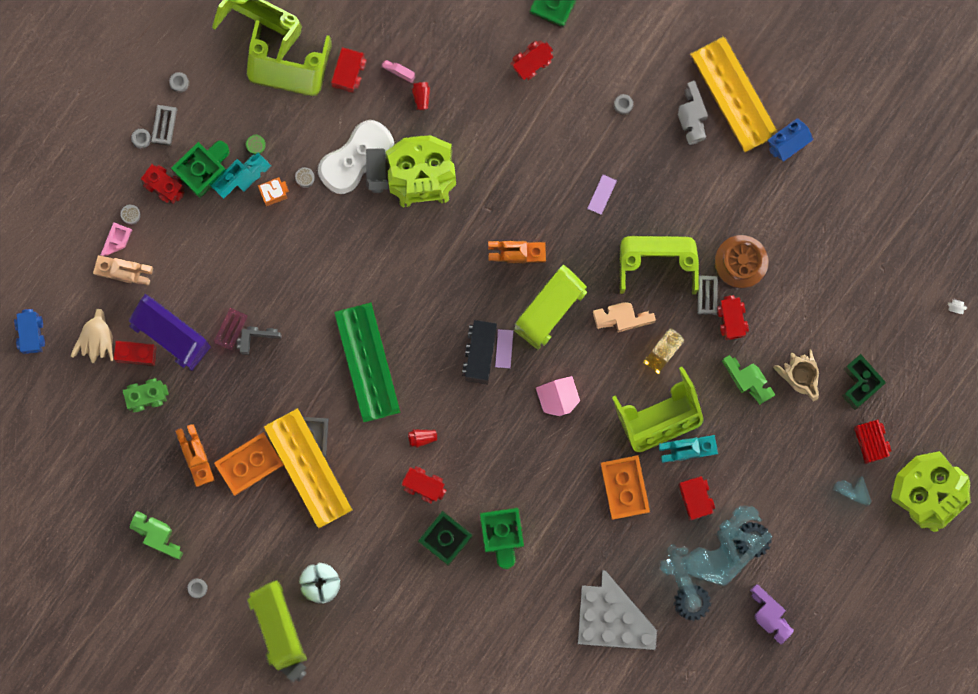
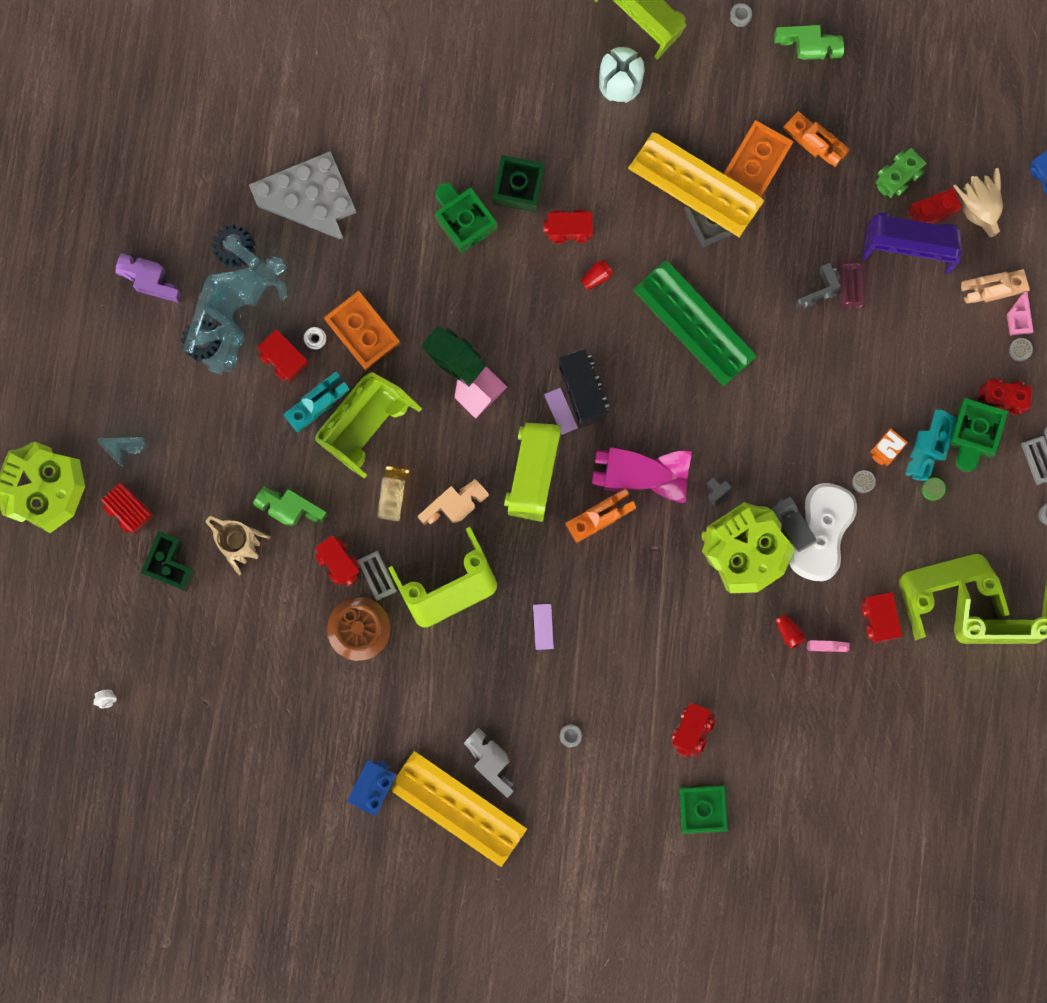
camera: 155 degrees right, 0 degrees up
(418, 223) = (718, 492): none -> dark grey tile
(473, 270) = (637, 472): none -> dark pink hips
(566, 426) = (453, 355): none -> dark green brick
(668, 496) = (310, 333): none -> white plate

